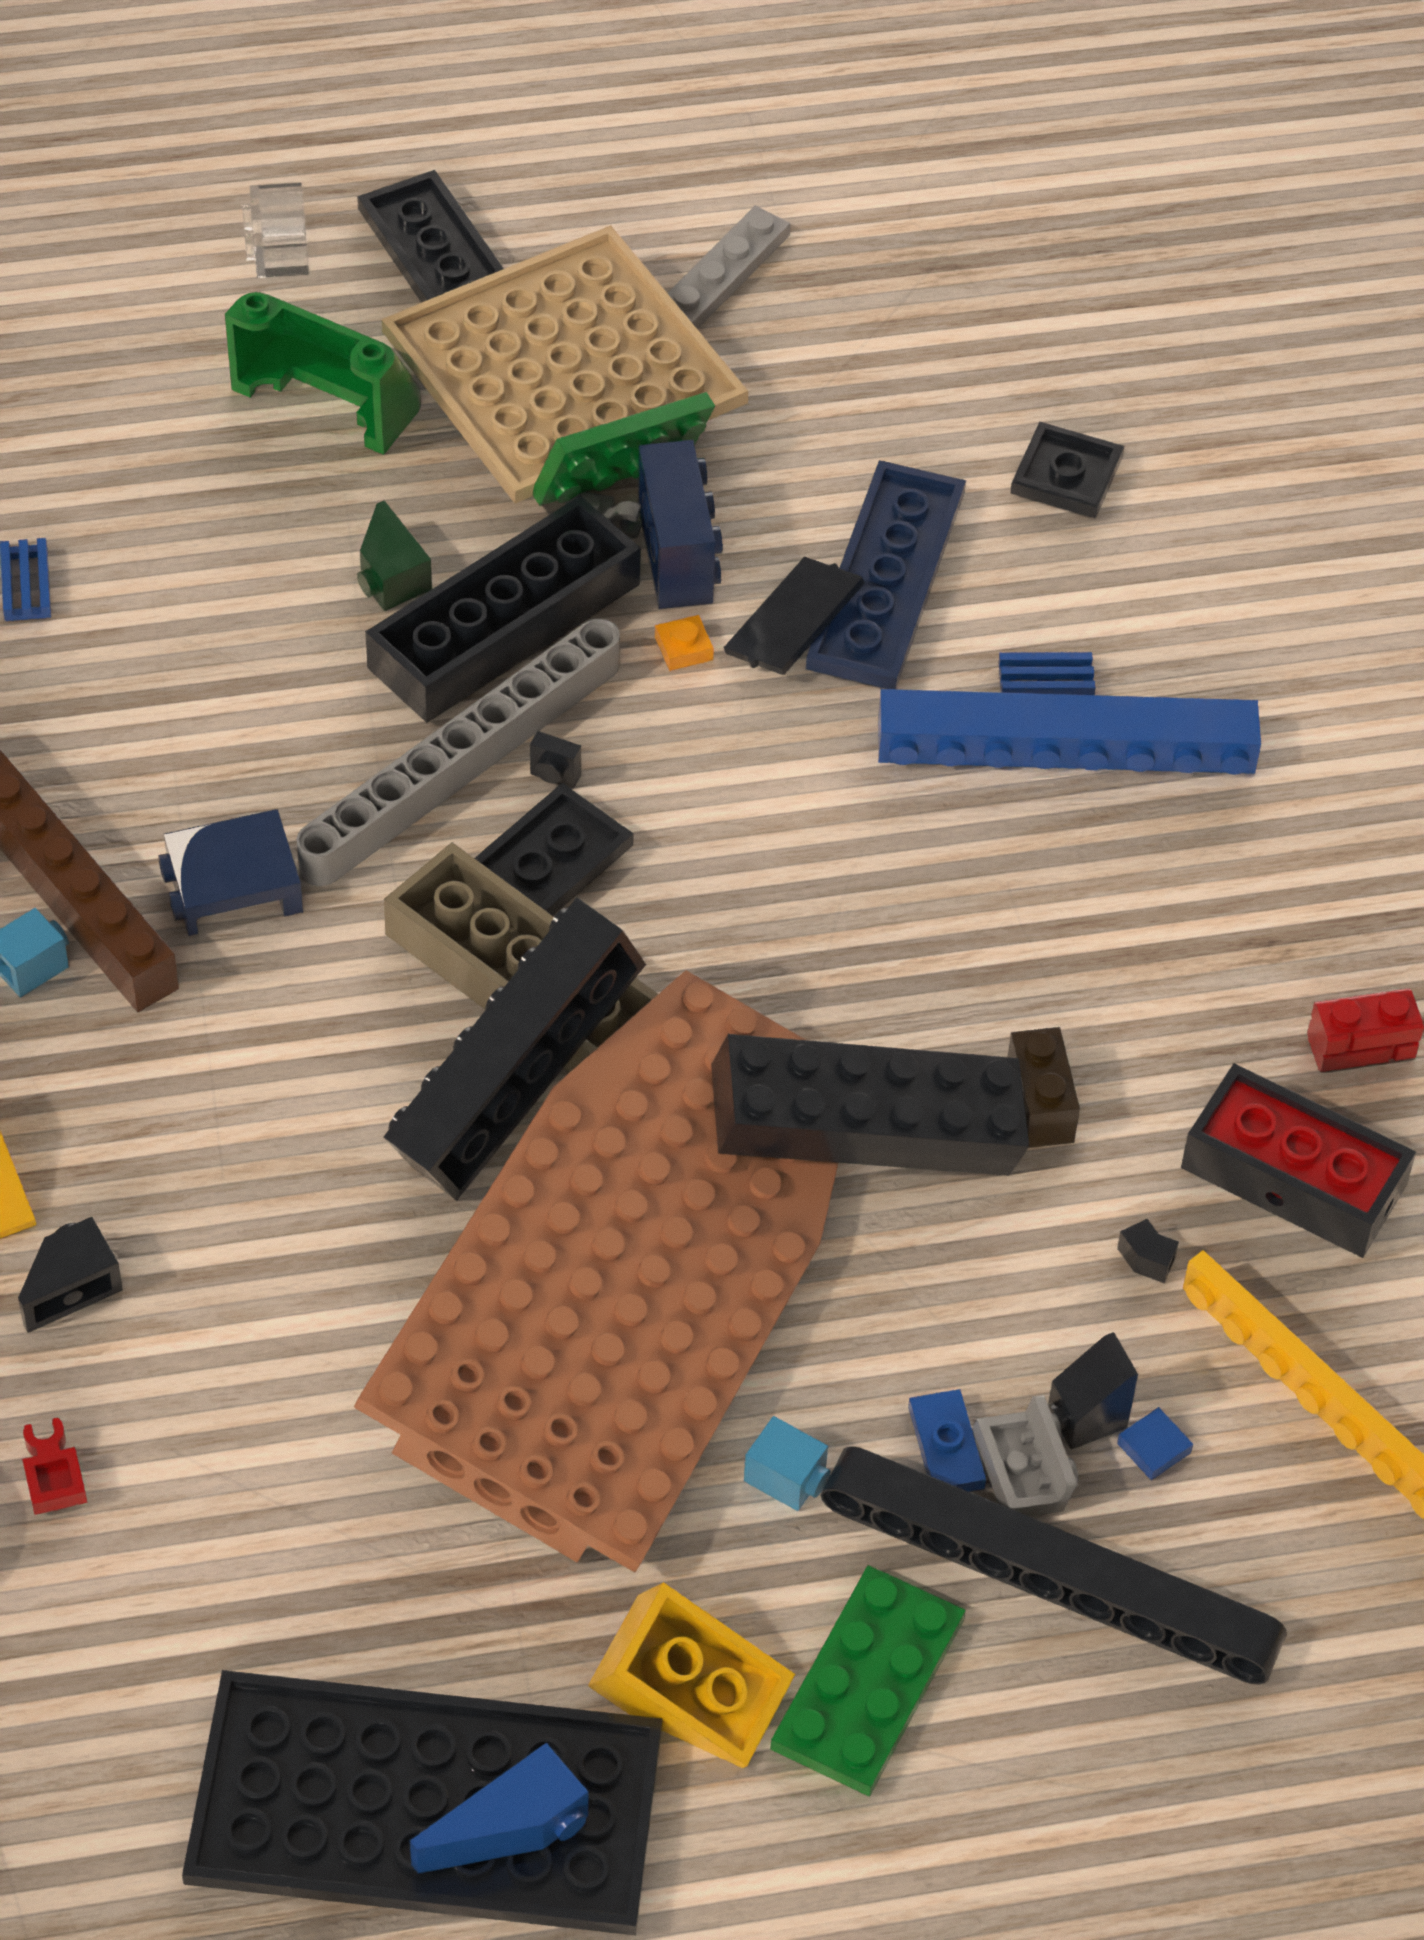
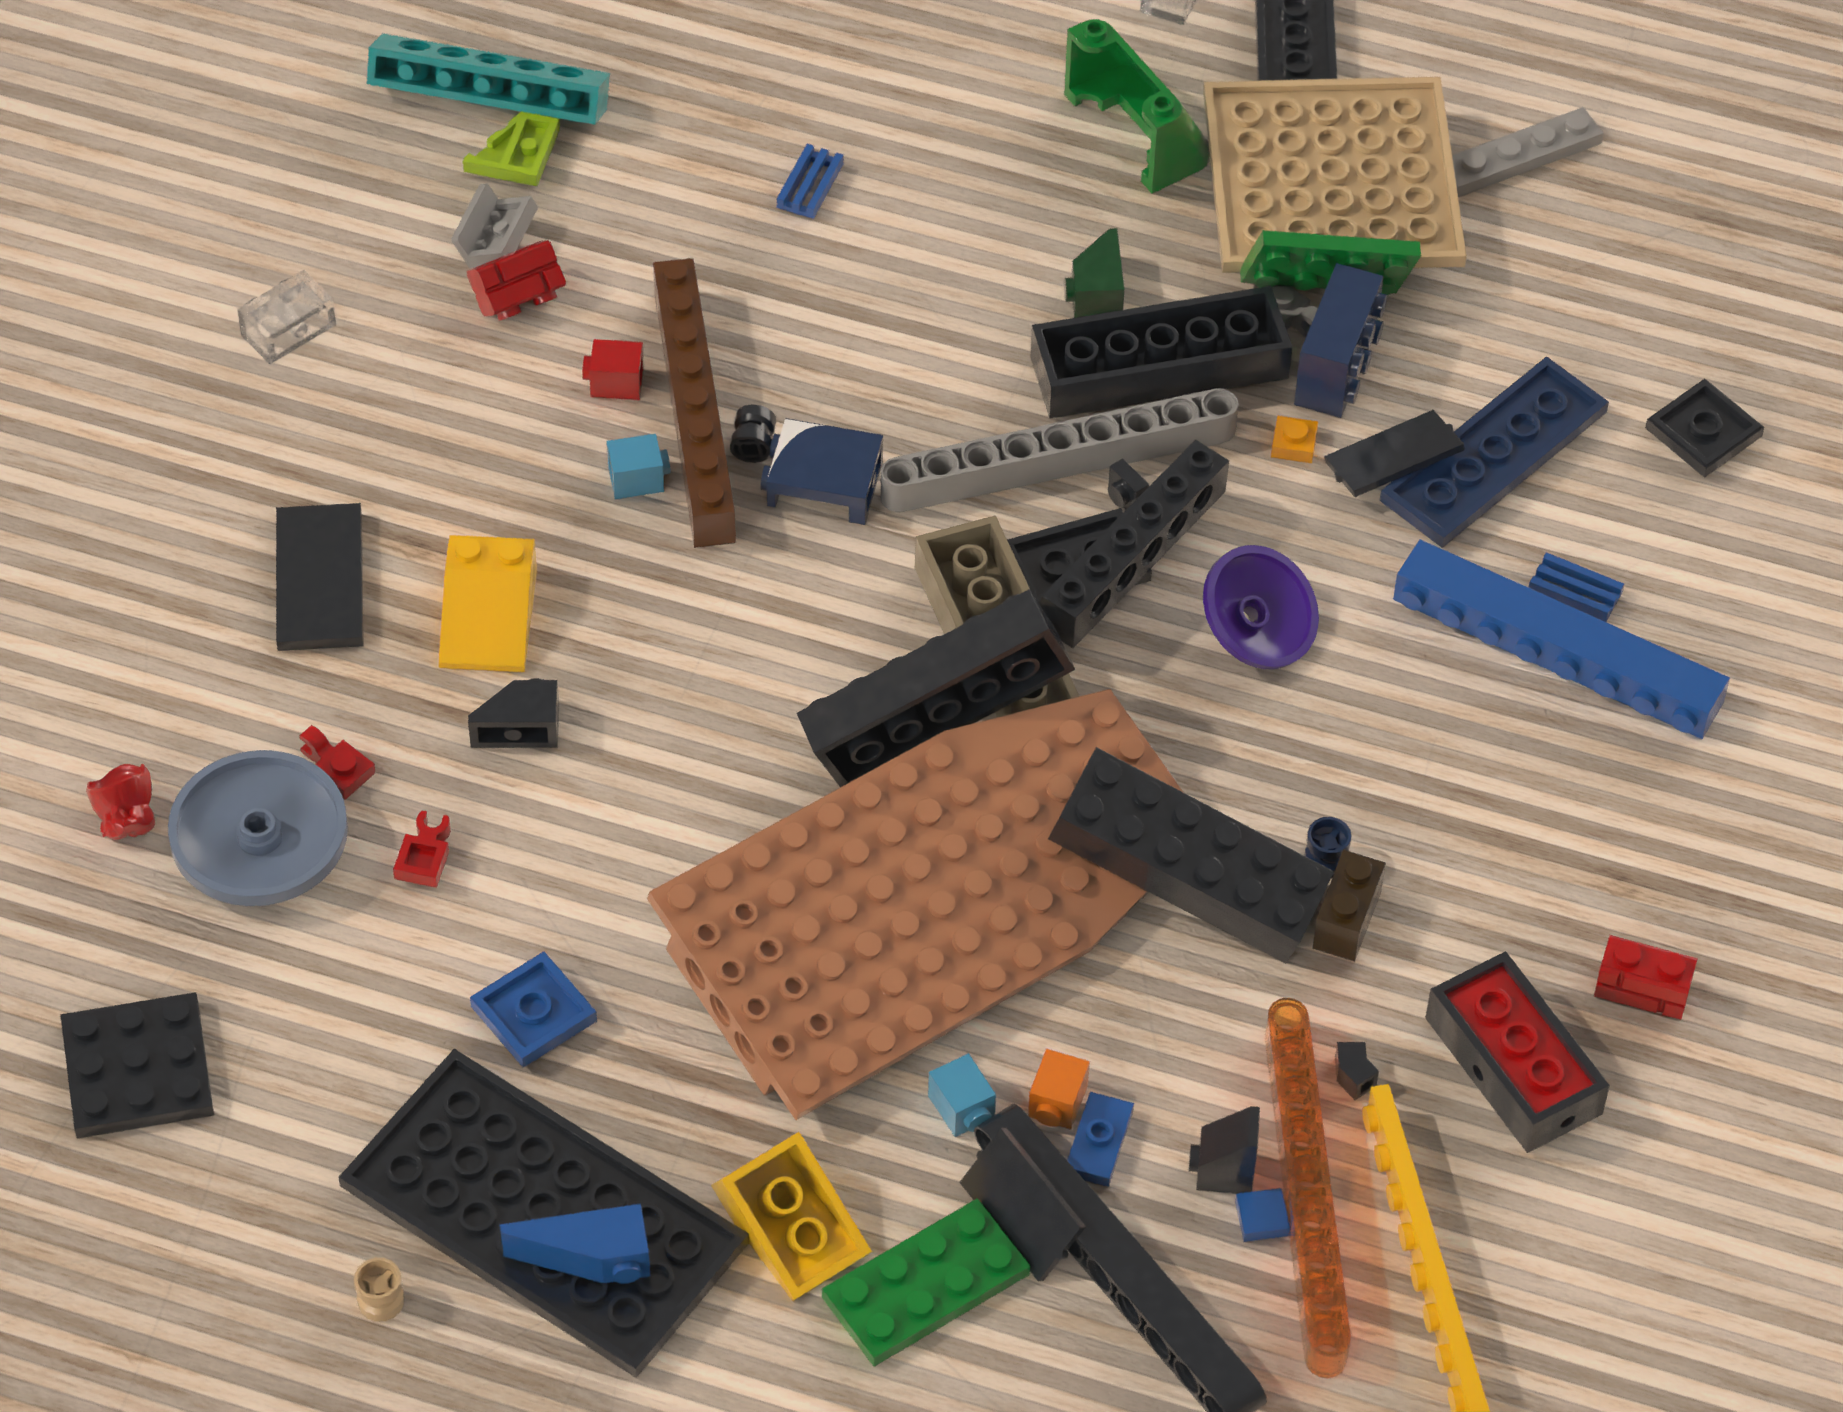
camera: 30 degrees right, 0 degrees up
(132, 864) = (752, 433): none -> black wheel
(278, 1586) = (533, 1009): none -> blue plate
(610, 797) = (1135, 542): none -> black brick
(769, 823) = (1274, 597): none -> dark purple dish
(879, 1410) = (1058, 1089): none -> orange brick
(923, 1546) = (1023, 1203): none -> black piece
(983, 1031) = (1327, 840): none -> dark blue wheel
(1027, 1459) = (1146, 1179): light grey bracket -> none
(1203, 1407) = (1304, 1202): none -> clear orange beam

